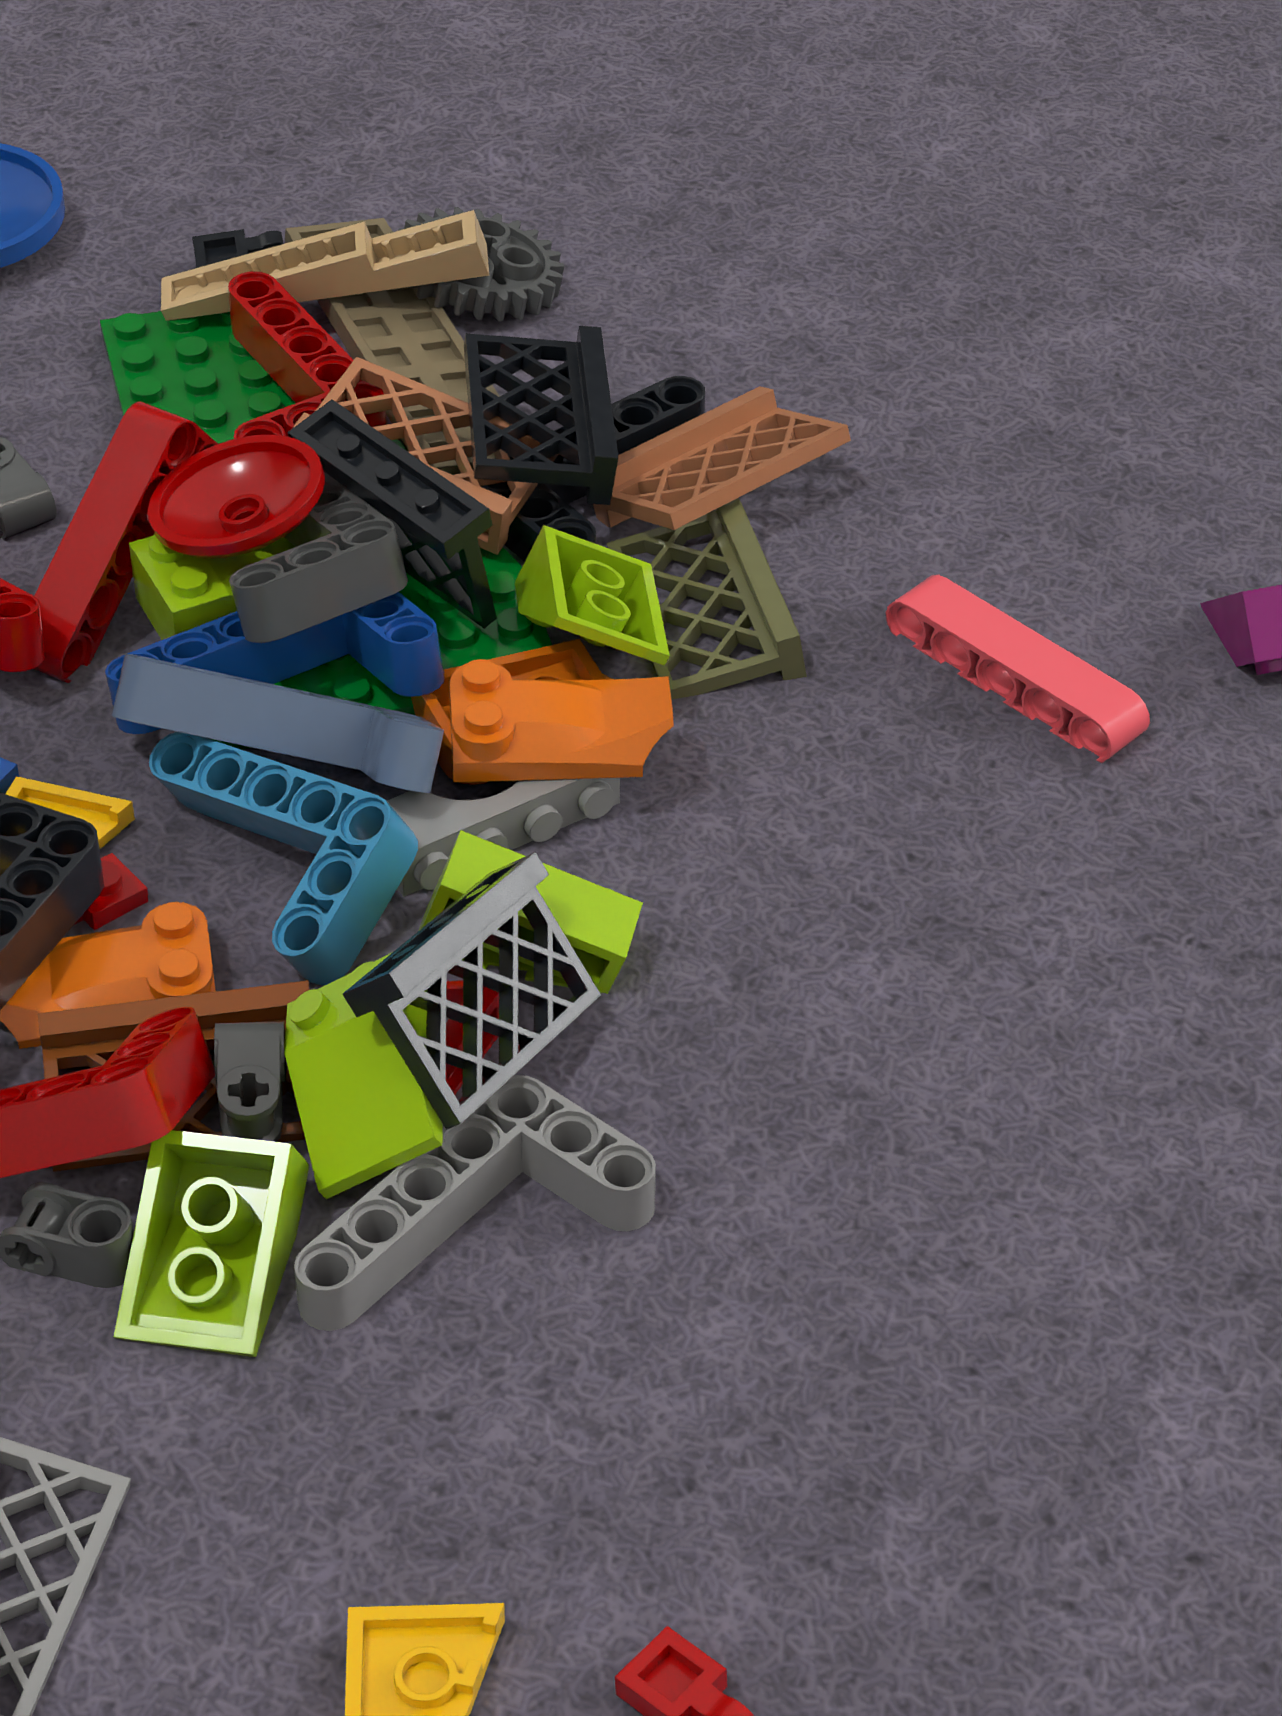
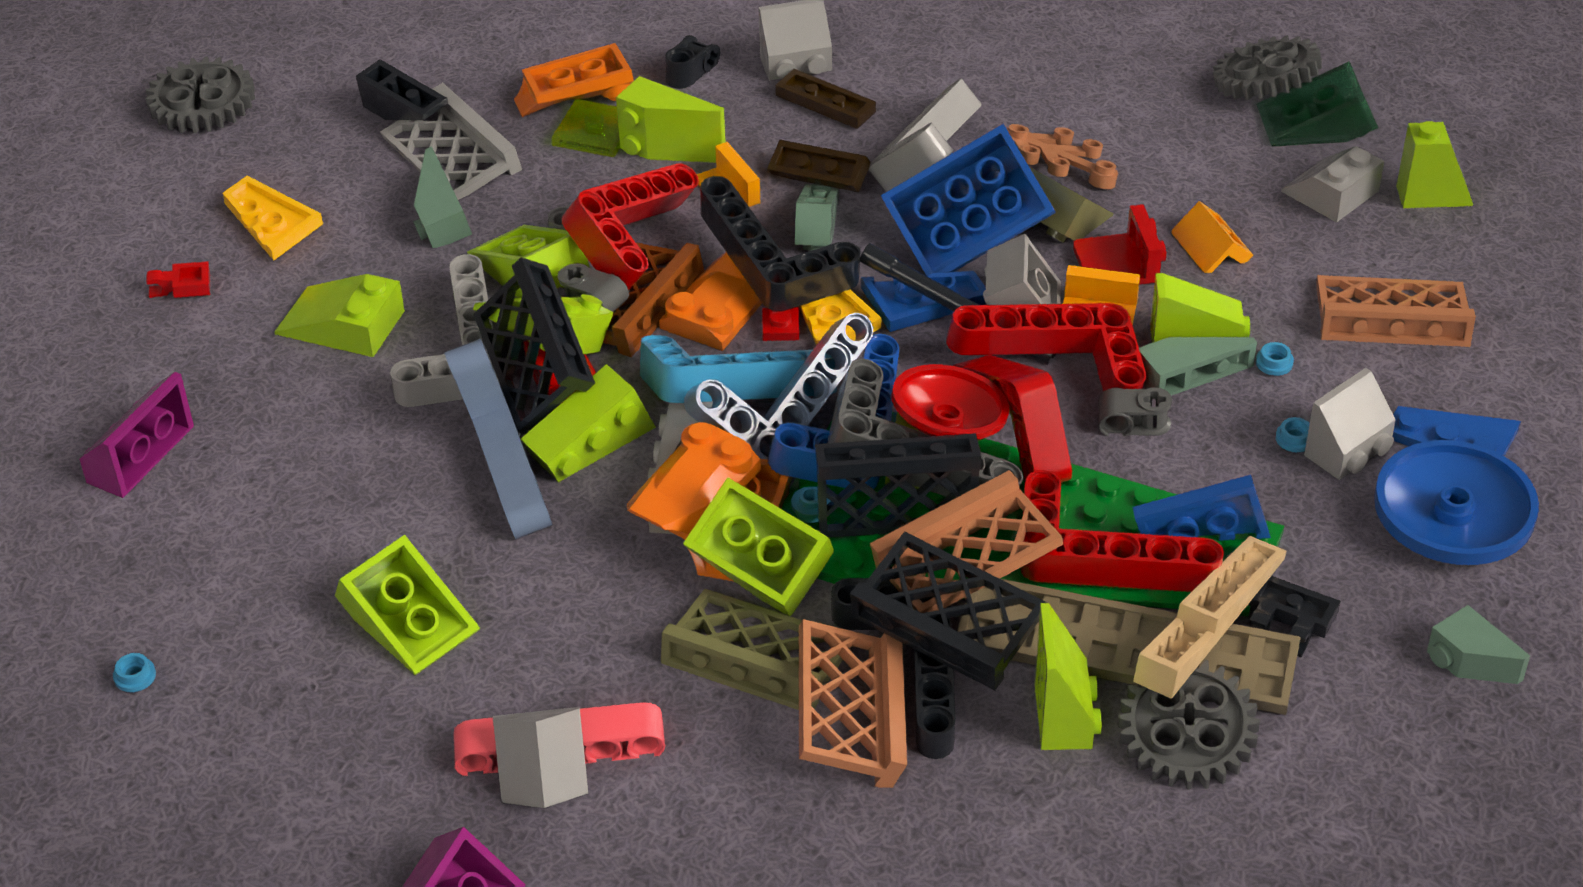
camera: 130 degrees right, 0 degrees up
(173, 146) = (1476, 649): none -> sand green slope
(179, 320) = (1211, 510): none -> blue wing
(182, 1447) = (437, 206): none -> sand green slope
(460, 638) = (805, 504): none -> dark azure plate
(552, 295) = (1063, 688): none -> lime slope
(555, 1391) = (346, 314): none -> lime slope
(625, 996) = (499, 439): none -> sand blue beam
(999, 919) = (405, 606): none -> lime slope
(1070, 1400) = (139, 438): none -> magenta slope
(1076, 616) = (540, 757): none -> light grey slope

